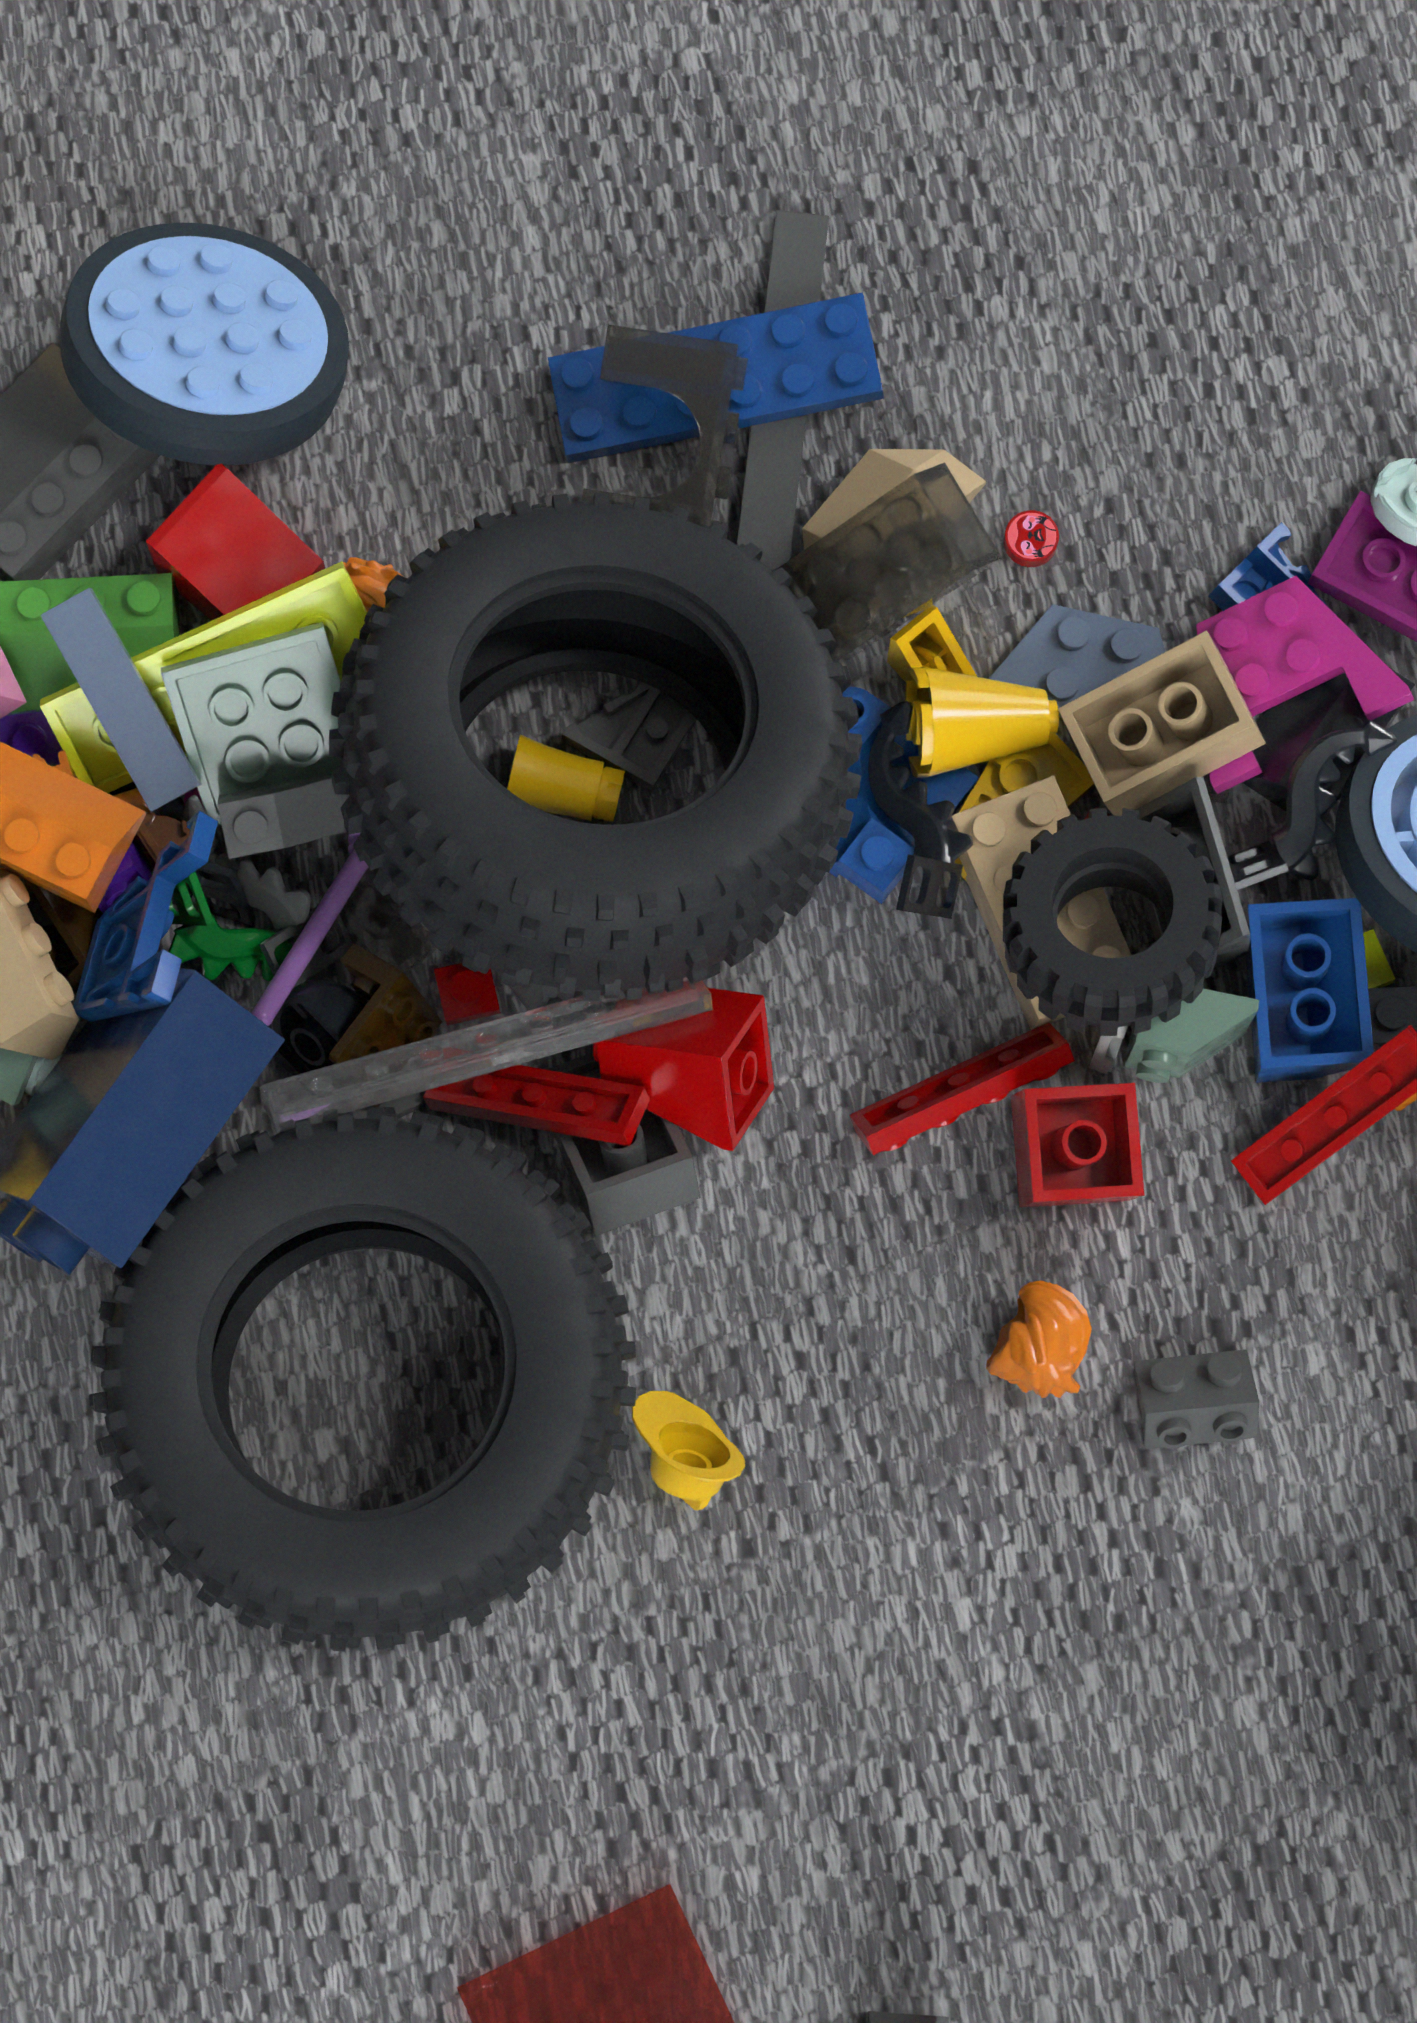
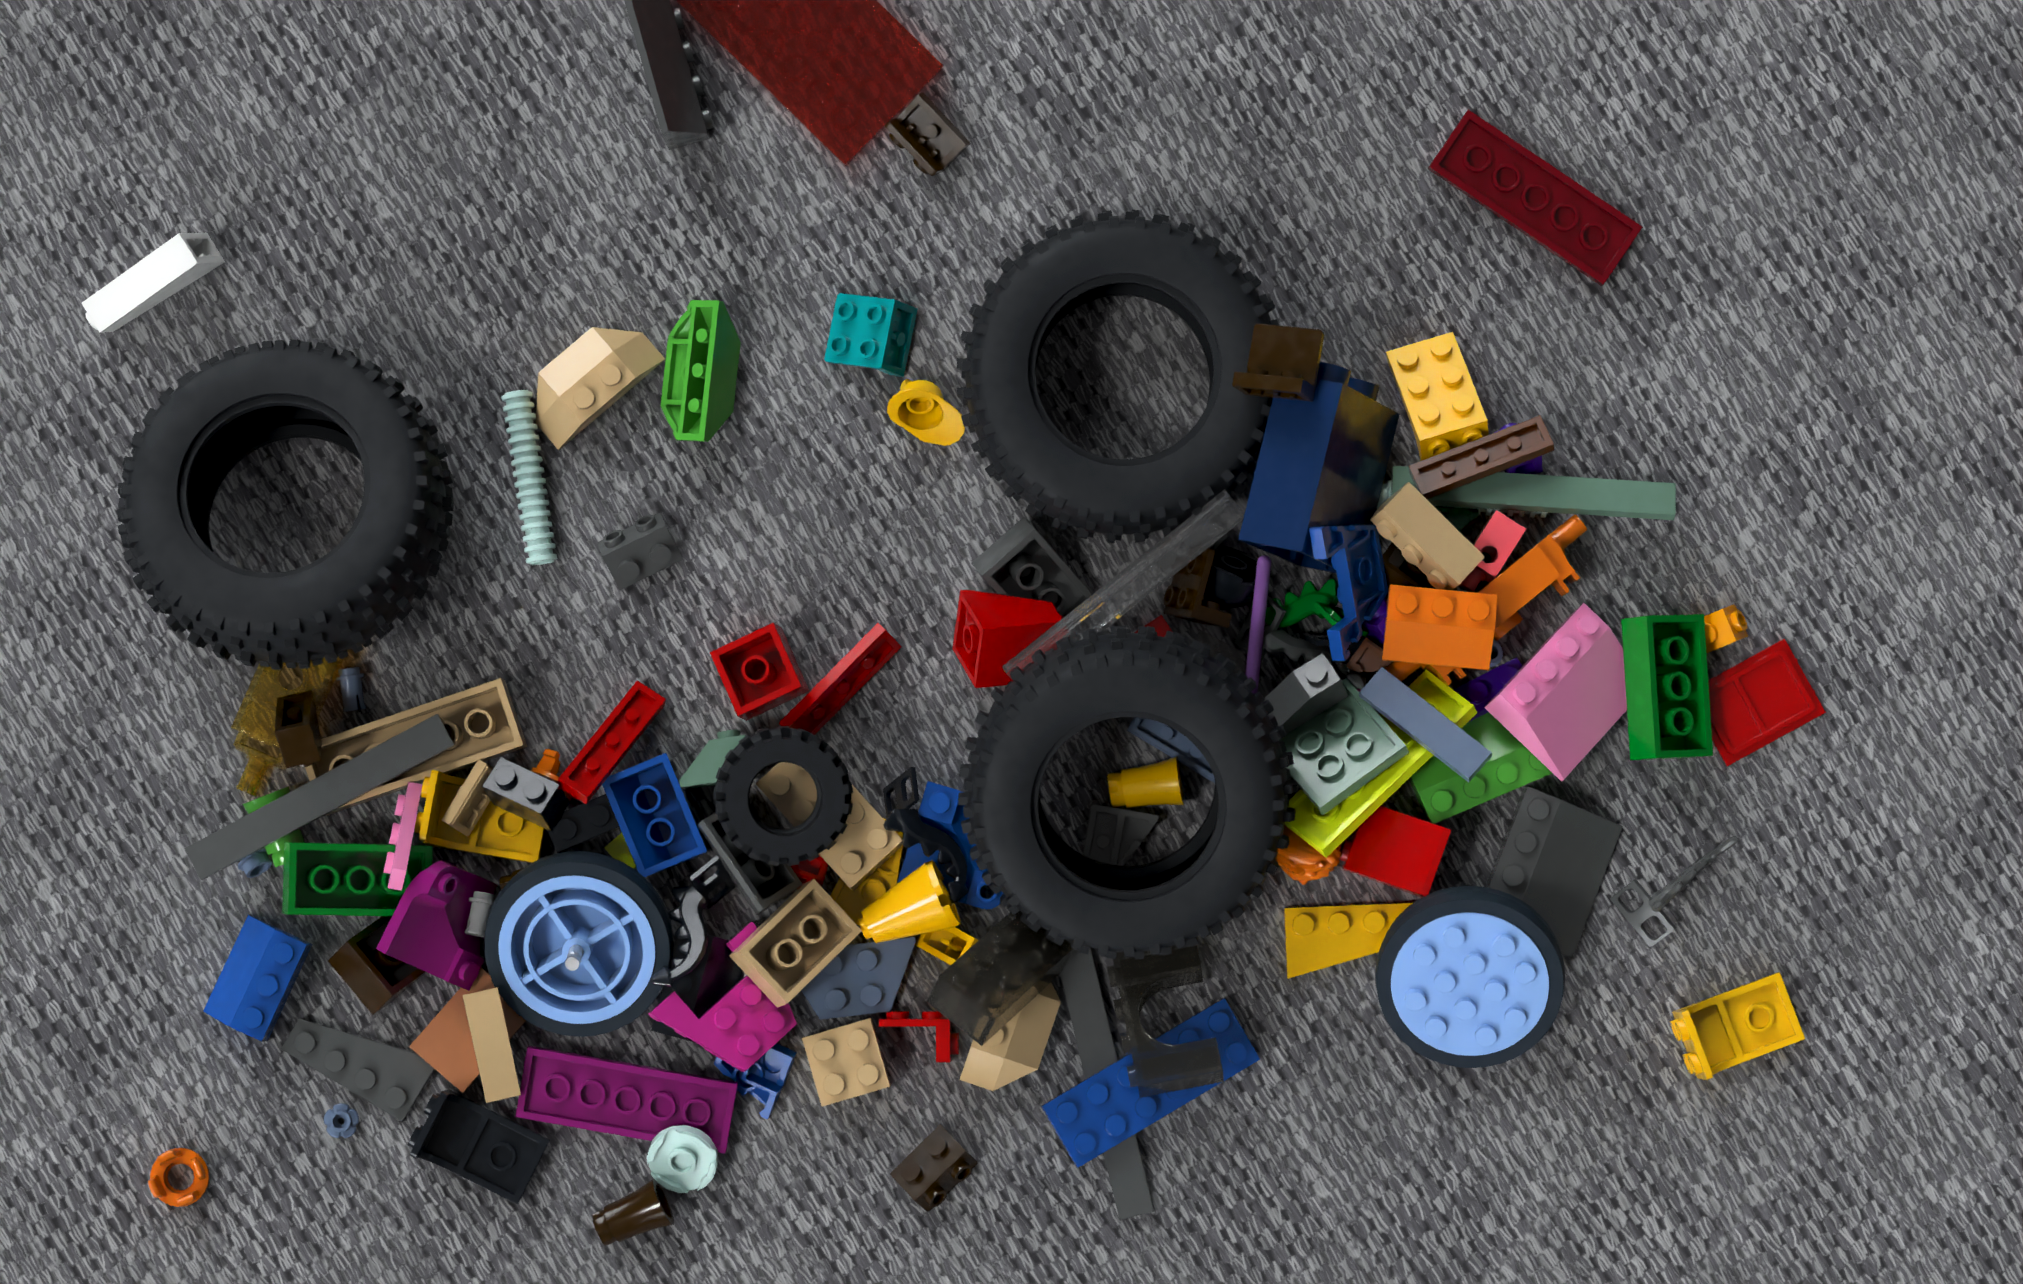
camera: 160 degrees right, 10 degrees up
(108, 1272) = (1282, 363): none -> dark brown bracket
(366, 488) = (1334, 934): none -> yellow wing
(524, 1882) = (927, 135): none -> dark brown bracket
(547, 1102) = (1067, 581): red plate -> none
(726, 1601) = (871, 333): none -> teal bracket
(1012, 1632) = (700, 371): none -> bright green wedge
(1031, 538) = (918, 1051): tile -> none
(1038, 570) = (946, 1041): none -> red bracket
(1043, 1341) = (740, 546): orange hair -> none
(1067, 372) = (934, 1169): none -> dark brown bracket
(1142, 552) = (846, 1062): none -> tan brick
(1183, 1689) = (590, 380): none -> tan wedge
(1330, 1571) = (529, 477): none -> light aqua piece

